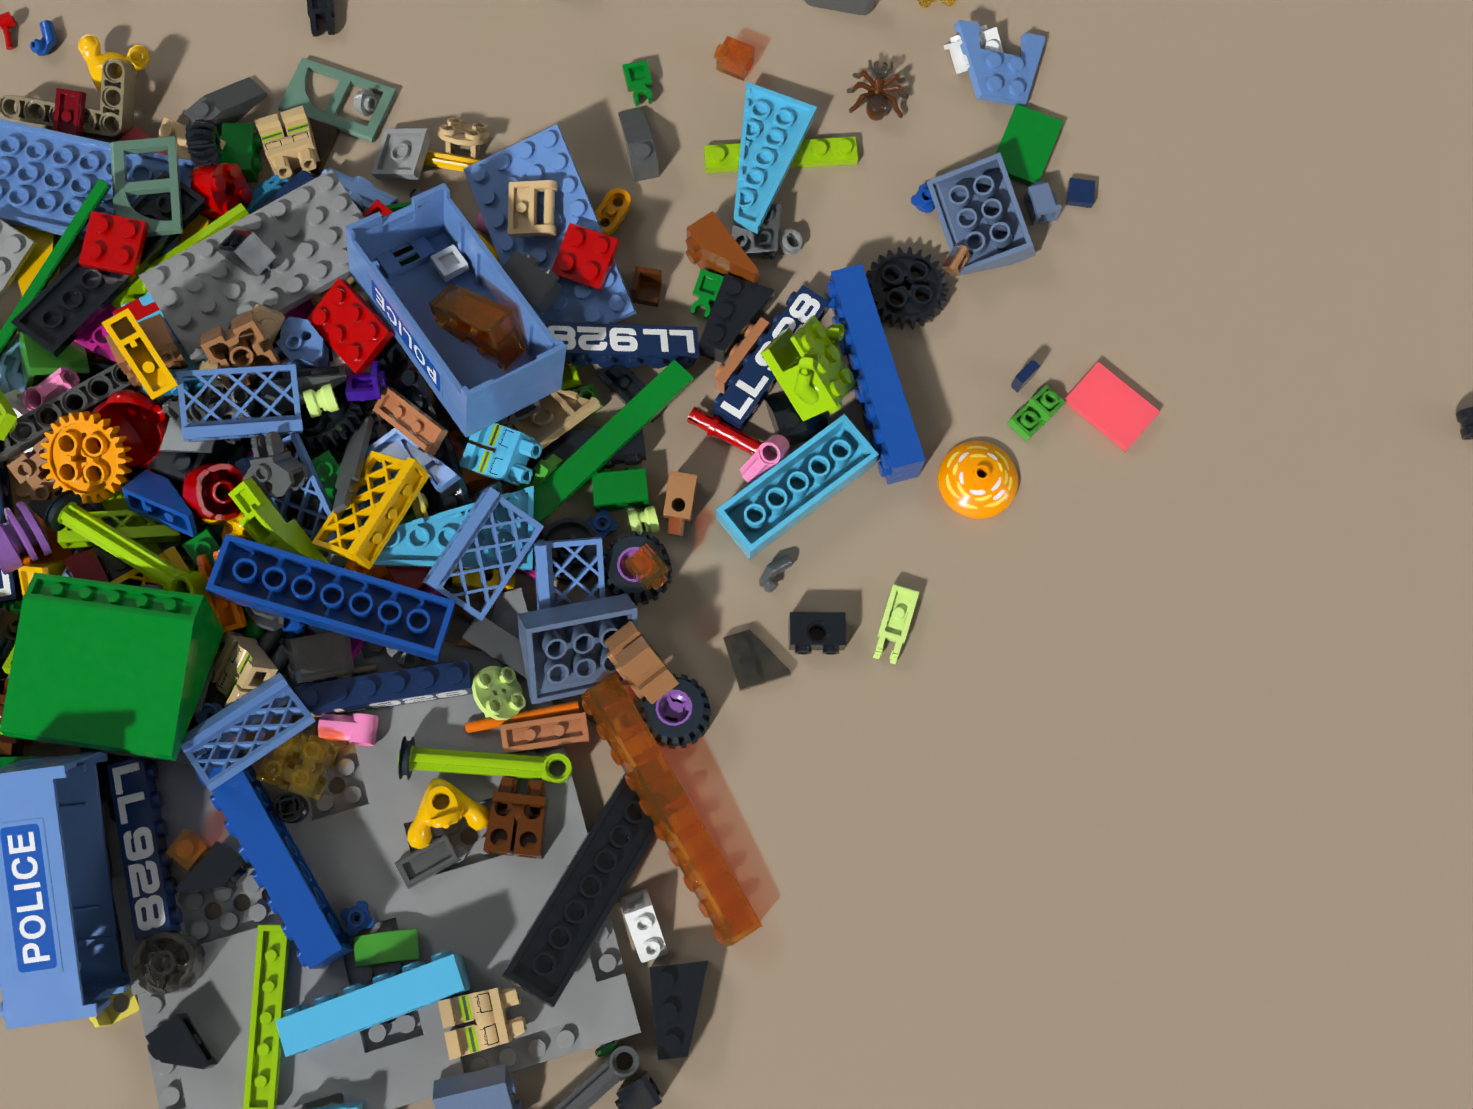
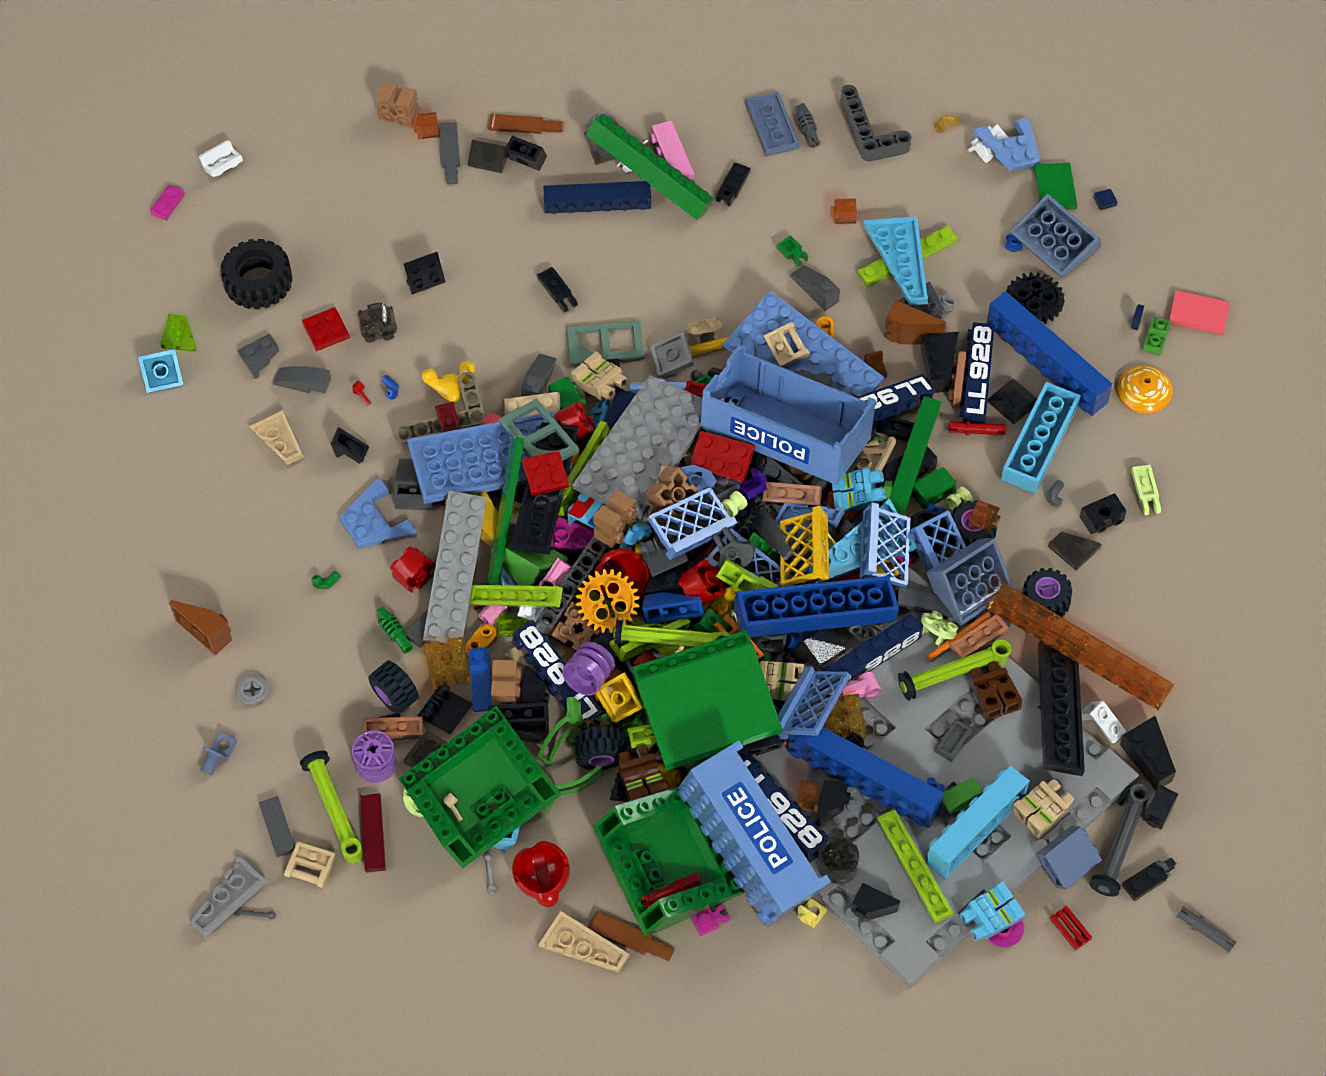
camera: 20 degrees left, 15 degrees down
(139, 353) = (625, 511): yellow slope -> none
(203, 142) = (556, 395): black gear -> none
(247, 252) = (636, 438): slope -> none
(365, 102) = (626, 336): light grey plate -> none
(441, 807) = (945, 703): yellow head -> none
(449, 263) = (759, 395): white plate -> none
(480, 321) = (806, 416): clear orange wedge -> none
(585, 257) = (837, 358): red plate -> none
(639, 663) = (1015, 568): medium nougat brick -> none
(680, 489) = (975, 475): medium nougat torso -> none
(707, 290) = (914, 351): green plate -> none
(764, 458) = (1011, 431): bright pink piece -> none
(810, 367) = (1014, 365): lime torso -> none
(878, 93) = (949, 197): animal -> none
(956, 260) = (1056, 267): medium nougat slope -> none
(1041, 203) = (1087, 214): sand blue brick -> none

